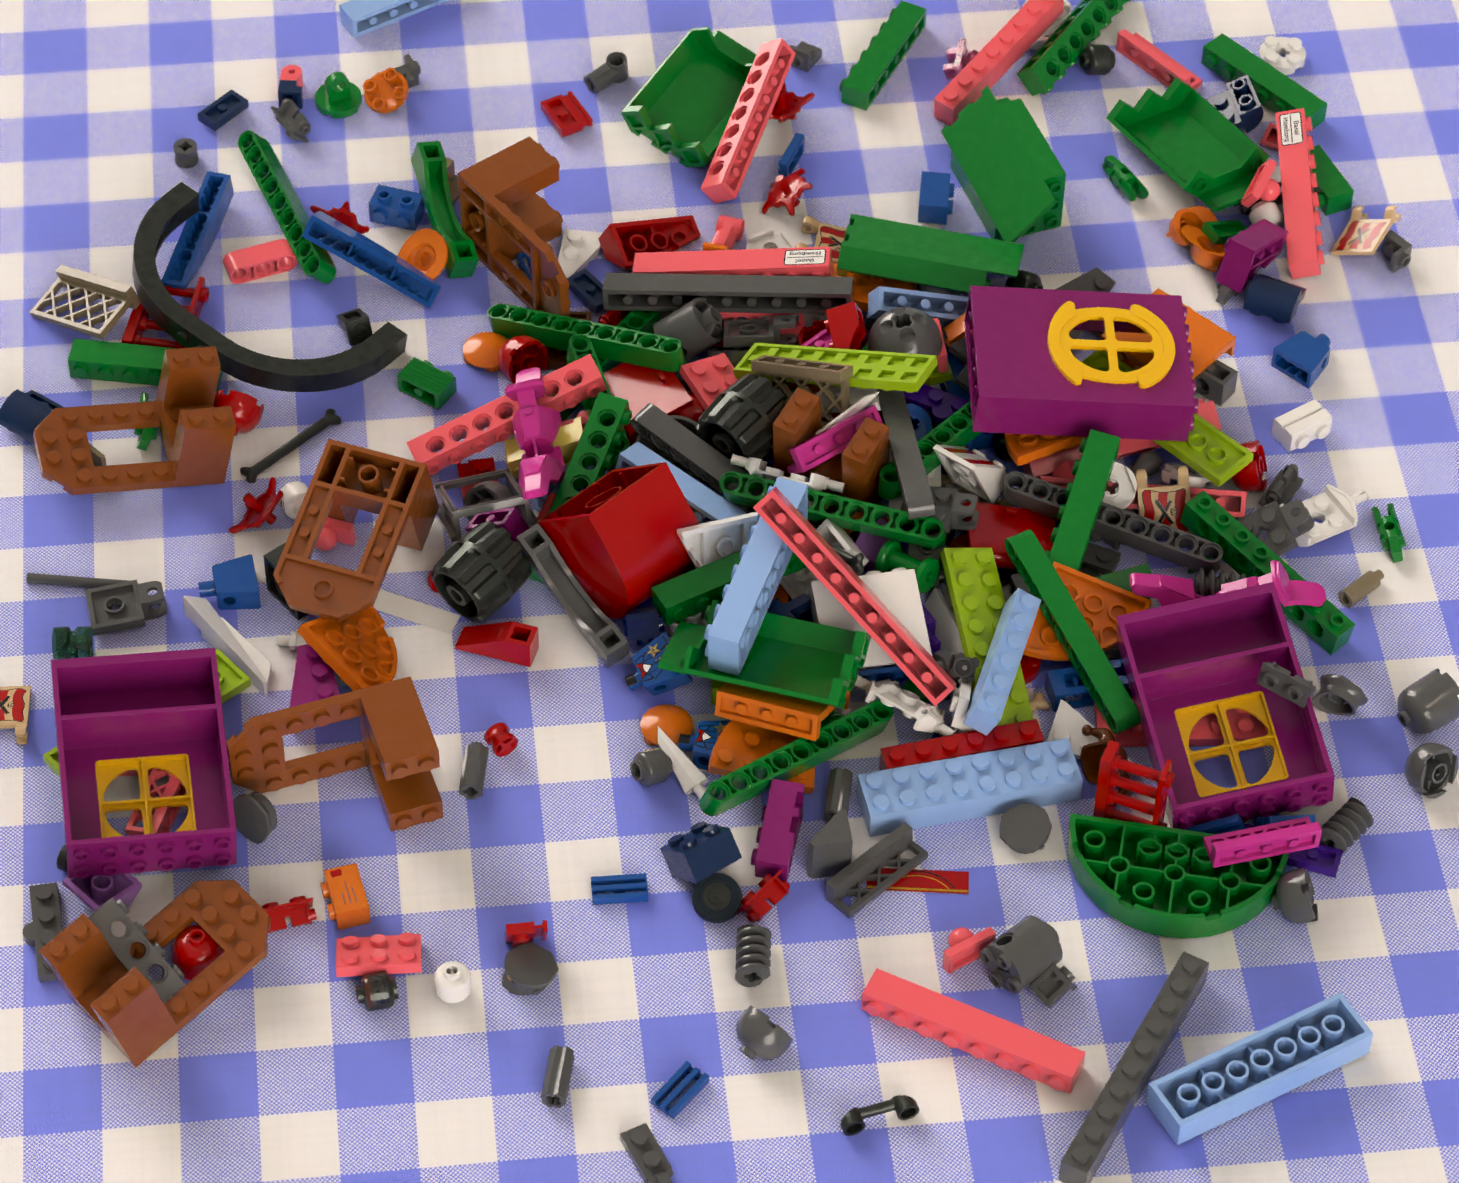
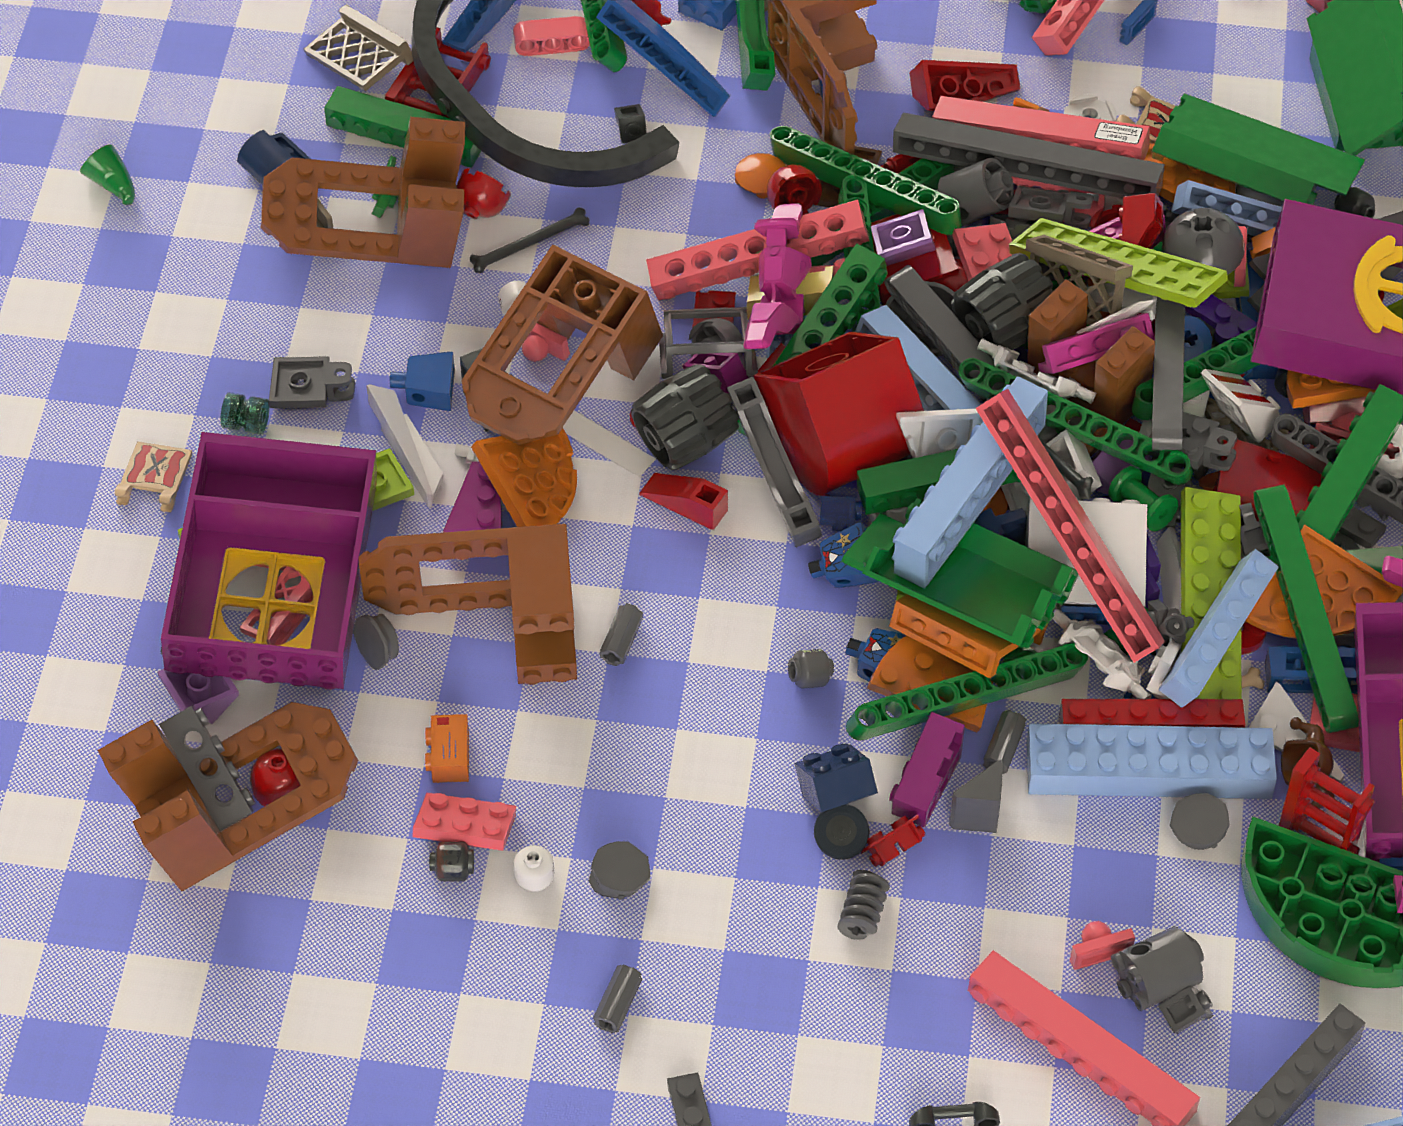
camera: 15 degrees right, 5 degrees up
(45, 924) = (135, 703): dark grey hinge -> none
(72, 581) = (264, 344): dark grey bar -> none
(259, 509) = (476, 303): red piece -> none
(296, 910) = (394, 754): red hinge -> none
(426, 252) = (723, 57): orange hat -> none
(426, 383) = (688, 198): green brick -> none
(501, 739) = (659, 605): red wheel -> none
(524, 932) = (622, 830): red plate -> none
(578, 250) = (882, 84): white wing -> none
(587, 289) = (882, 124): dark blue plate -> none
(618, 885) = (742, 794): blue tile -> none
(637, 380) = (903, 237): none -> medium lavender slope
(670, 718) = (838, 622): orange dish -> none
(686, 772) = (847, 681): white bar -> none
(693, 1073) = (737, 1033): blue tile -> none
(728, 231) = (1049, 89): coral piece -> none
(761, 1036) = (846, 1001): dark grey cylinder -> none
(786, 191) = (1123, 56): red piece -> none
(868, 864) = (1020, 826): dark grey fence -> none
(928, 881) = (1067, 855): red sticker -> none
(934, 197) = (1281, 90): blue brick -> none
(1009, 576) = (1251, 533): none -> dark grey plate

